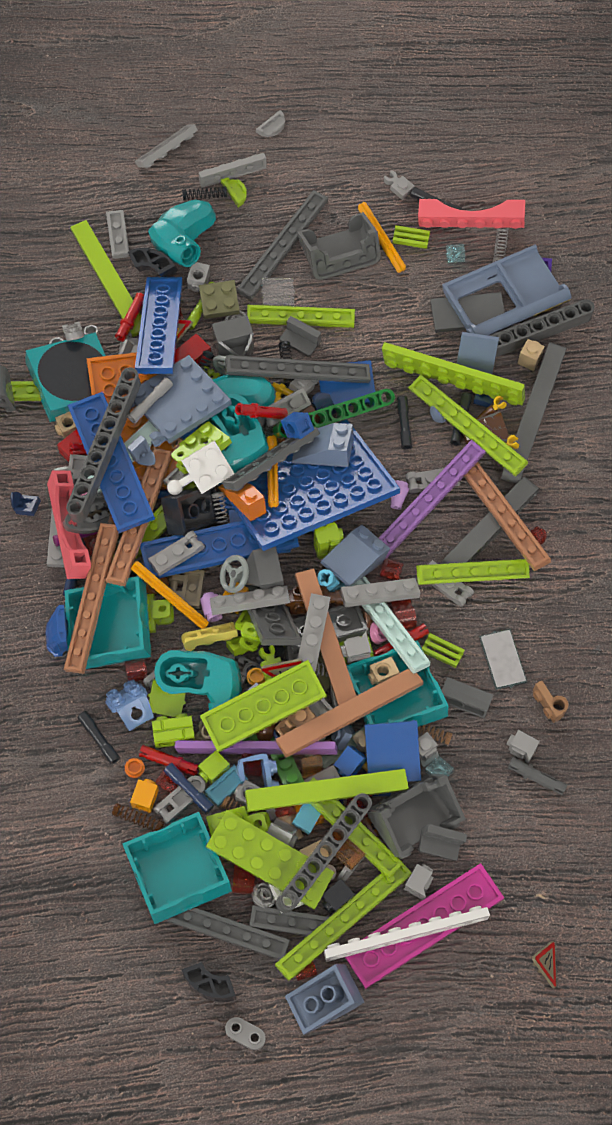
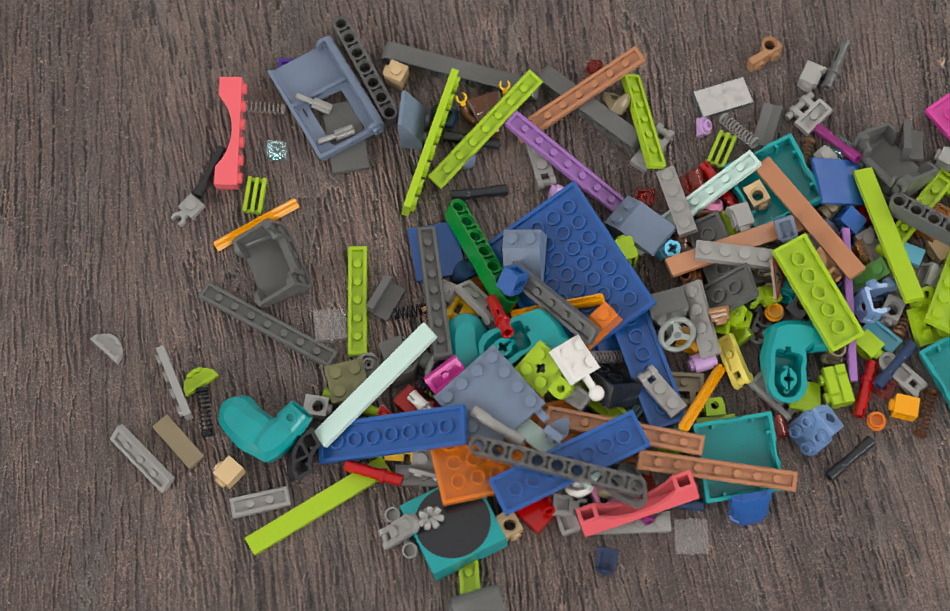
camera: 90 degrees left, 5 degrees up
(40, 583) = (691, 536): none -> clear piece
(77, 349) = (429, 517): none -> light grey plant
(146, 208) = (228, 472): none -> tan brick
(179, 174) = (178, 442): none -> dark tan tile
(190, 350) = (418, 401): none -> white axle
(207, 312) = (375, 384): none -> light aqua tile
(210, 365) = (444, 374): none -> dark pink plate
(249, 613) = (719, 314): none -> medium nougat plate
(337, 685) = (785, 228): none -> sand blue plate
(432, 767) = (846, 150): none -> magenta piece
(446, 673) = (726, 122): none -> light grey piece
(468, 302) = (338, 134): none -> light grey axle
(468, 634) = (703, 127): none -> lavender plate
(476, 745) = (815, 114): none -> light grey plate
(495, 549) = (616, 103): none -> dark tan plate
(500, 284) = (316, 103): none -> light grey axle

